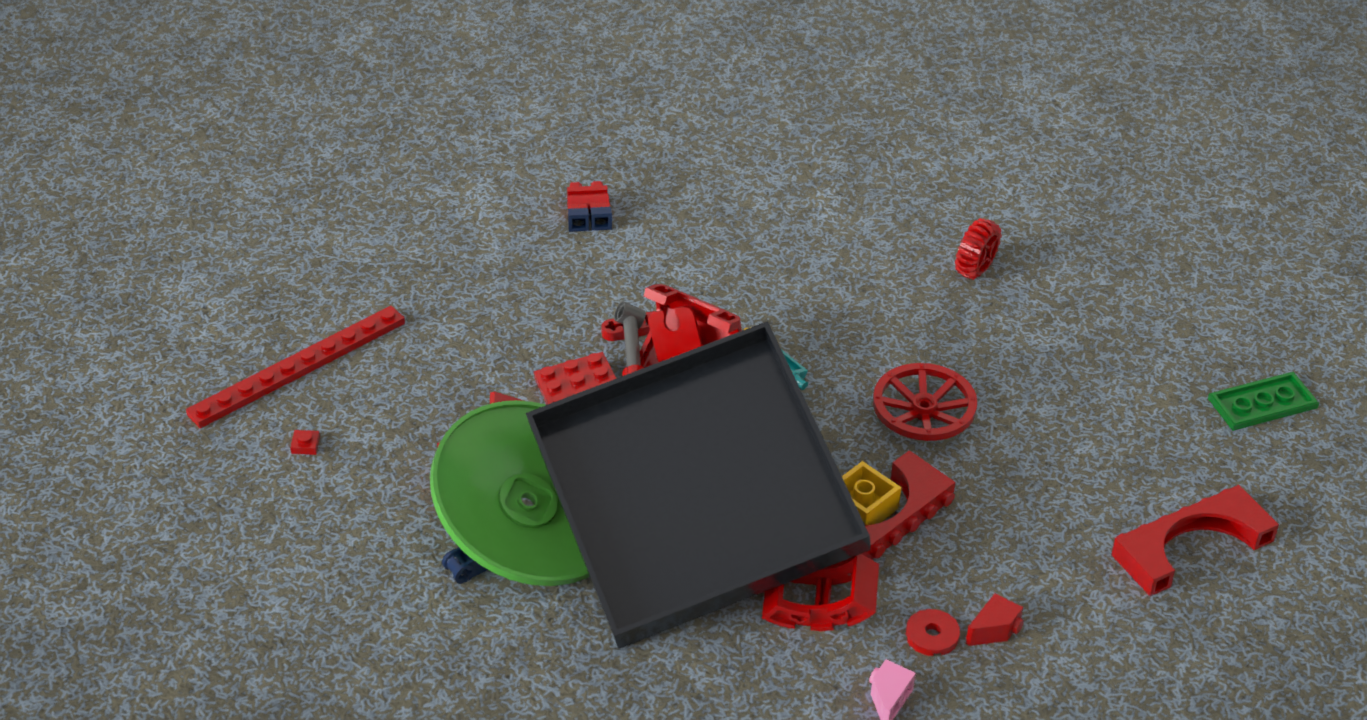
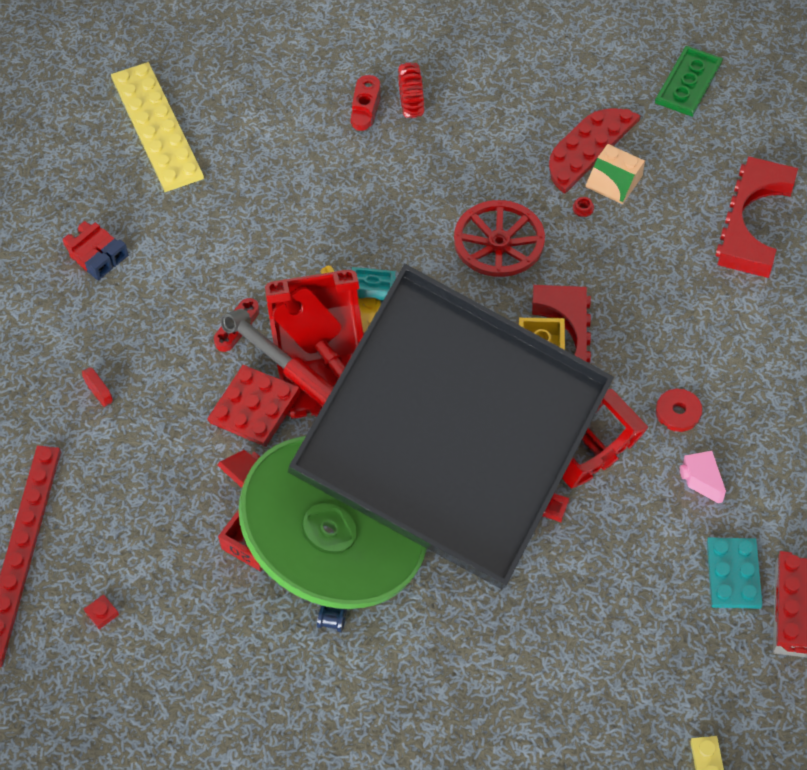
camera: 40 degrees left, 15 degrees up
(478, 296) = (97, 386): none -> red tile
(731, 620) = (556, 508): none -> red plate
(739, 157) = (157, 127): none -> light yellow plate
(931, 238) = (365, 102): none -> red piece
(995, 622) = (710, 370): red slope -> none
(1035, 430) = (583, 202): none -> red plate
(1095, 423) = (615, 174): none -> light nougat slope
(1100, 389) = (584, 144): none -> red plate

